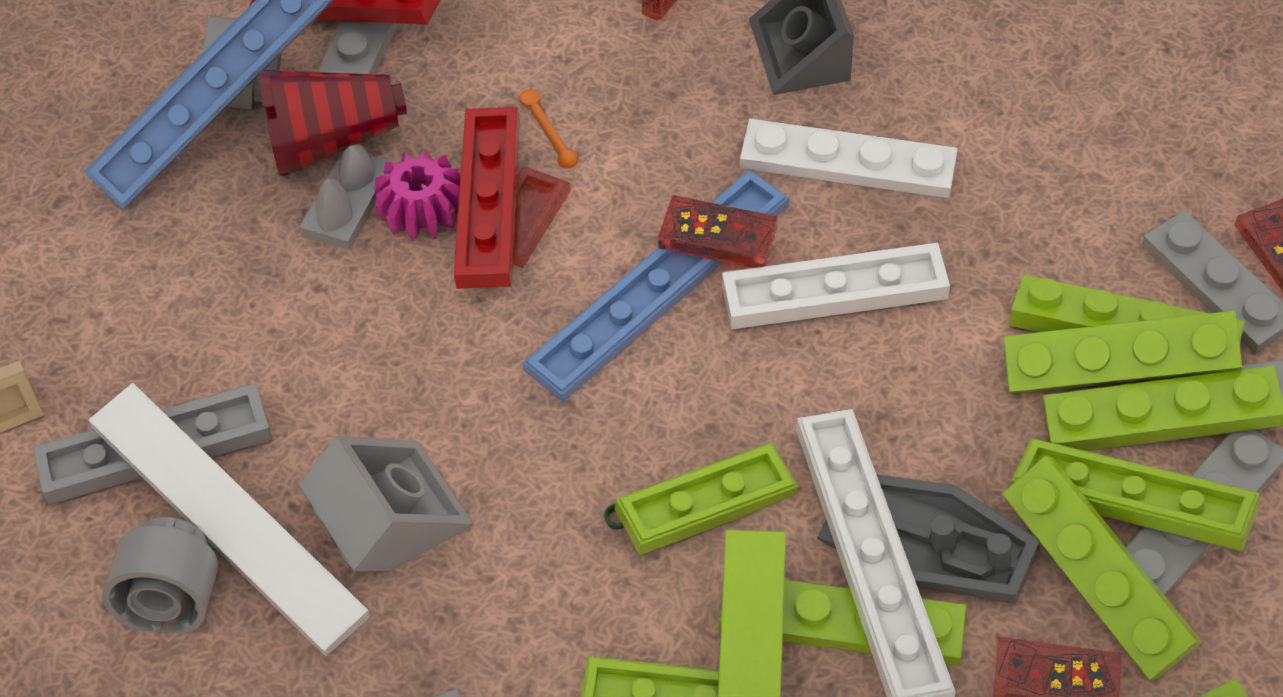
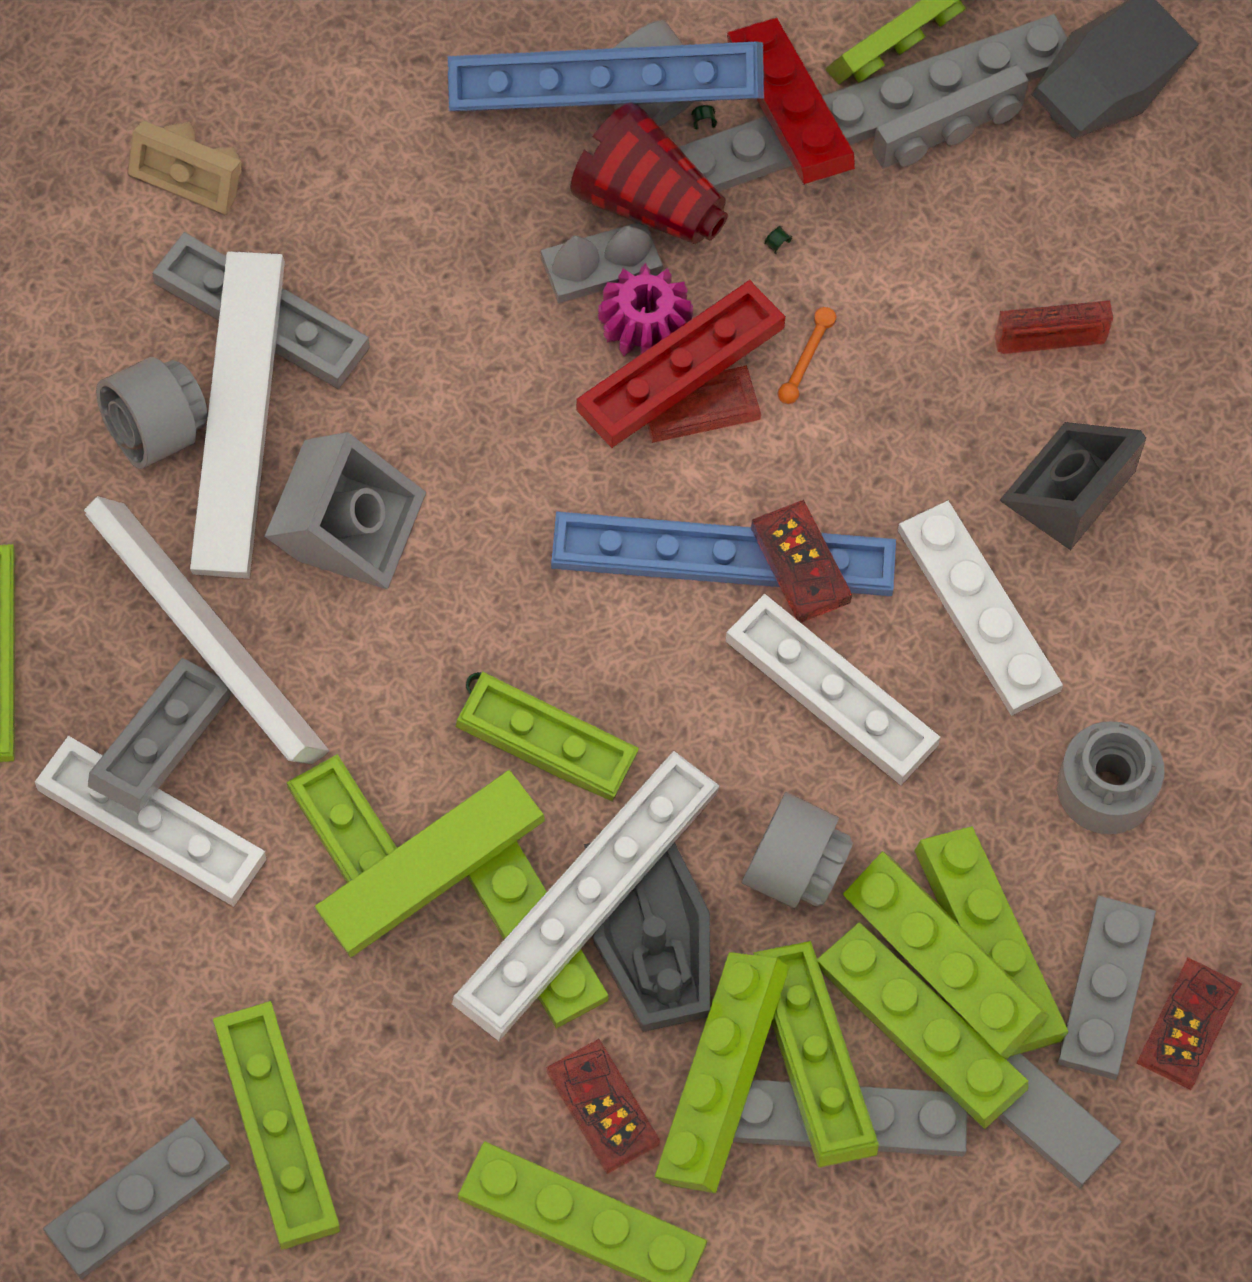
camera: 45 degrees right, 10 degrees up
(296, 58) = (704, 112): none -> dark green piece
(387, 676) = (206, 631): none -> white tile
(441, 84) = (777, 238): none -> dark green piece
(961, 386) = (798, 854): none -> light grey piece
(1059, 164) = (1113, 749): none -> light grey piece

